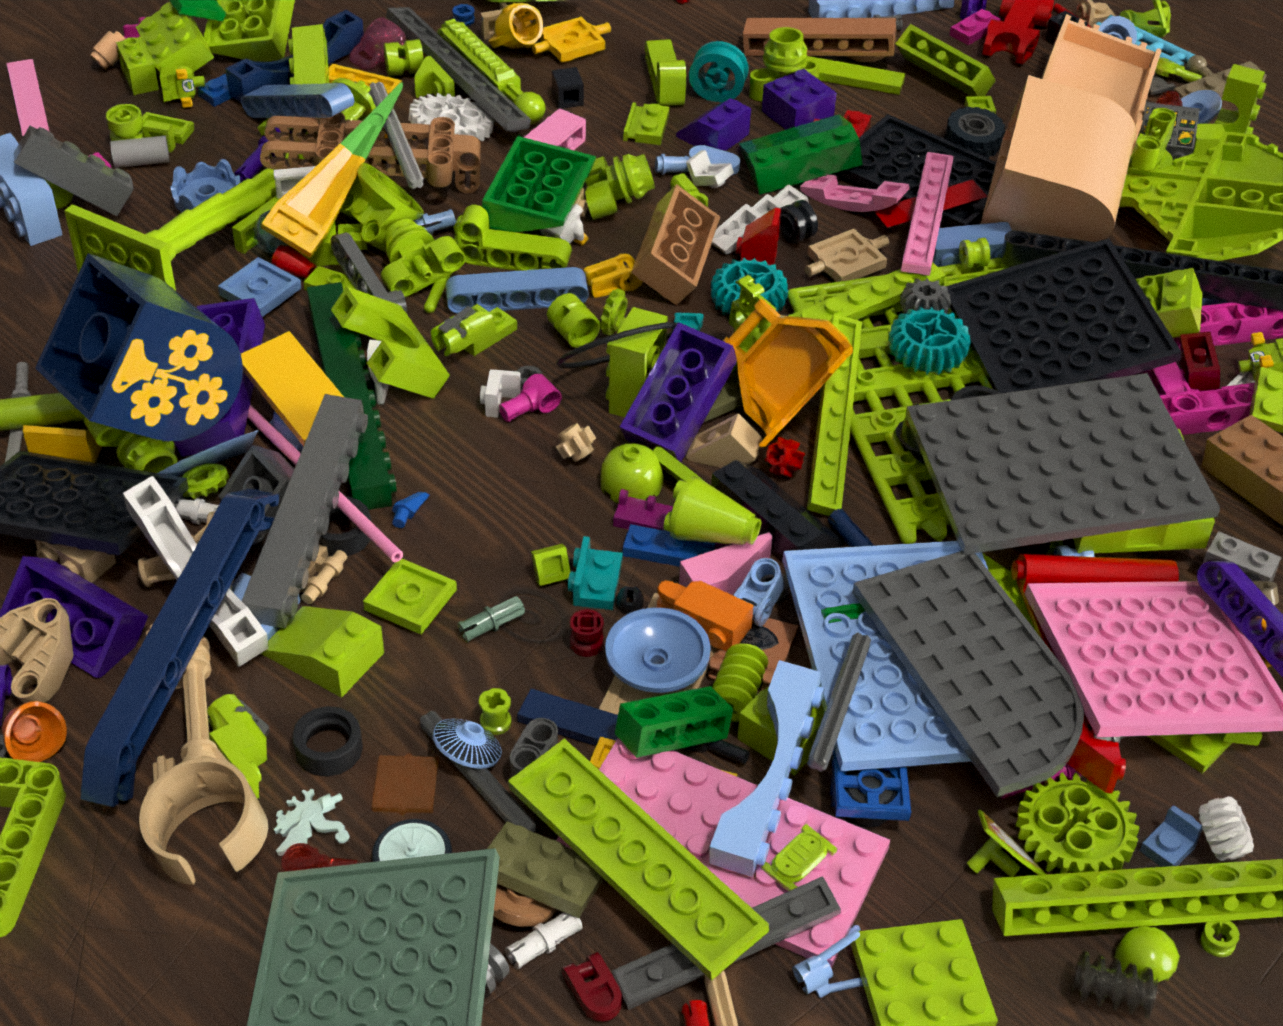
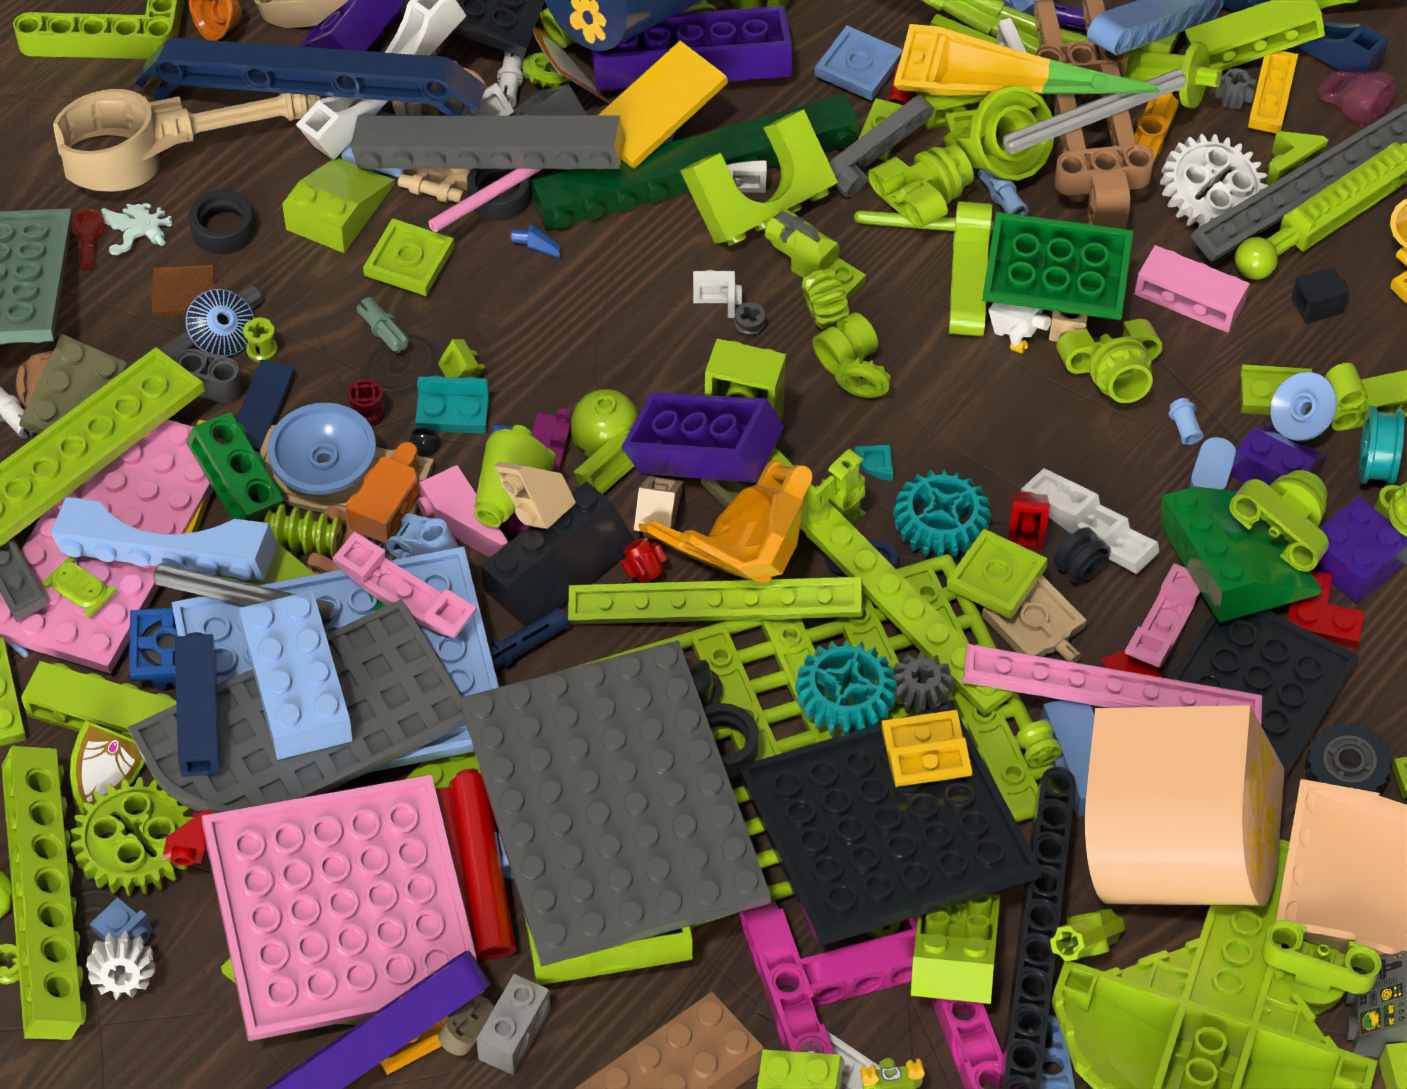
camera: 85 degrees right, 10 degrees up
(239, 736) = (210, 156): lime plate -> none
(409, 840) = (98, 302): light aqua wheel -> none
(412, 55) = (1328, 117): lime wheel -> none
(515, 289) = (897, 289): medium blue beam -> none
(528, 322) = (825, 298): none -> lime gear
(536, 394) = (712, 321): dark pink pin -> none
(560, 362) = (817, 414): black piece -> none
(575, 442) = (641, 365): tan gear -> none
(611, 275) = (947, 385): yellow piece -> none
(676, 245) = (991, 423): medium nougat brick -> none
(681, 89) = (1295, 397): none -> light blue dish
(682, 181) = (1131, 443): lime bar -> none
(708, 174) = (1176, 457): white bracket -> none
(745, 487) = (536, 493): none -> tan slope
(775, 111) = (1291, 508): none -> lime beam
(819, 257) = (997, 573): none -> lime plate
(836, 589) = (388, 583): none -> bright pink slope
(934, 850) = (71, 697): none -> lime brick
(952, 647) = (295, 675): none -> light blue brick
(985, 721) = (197, 705): none -> dark blue brick
(997, 294) = (926, 748): none -> yellow slope
(1153, 238) = (1087, 934): none -> lime piece
(1199, 361) = (868, 1005): dark red brick -> none

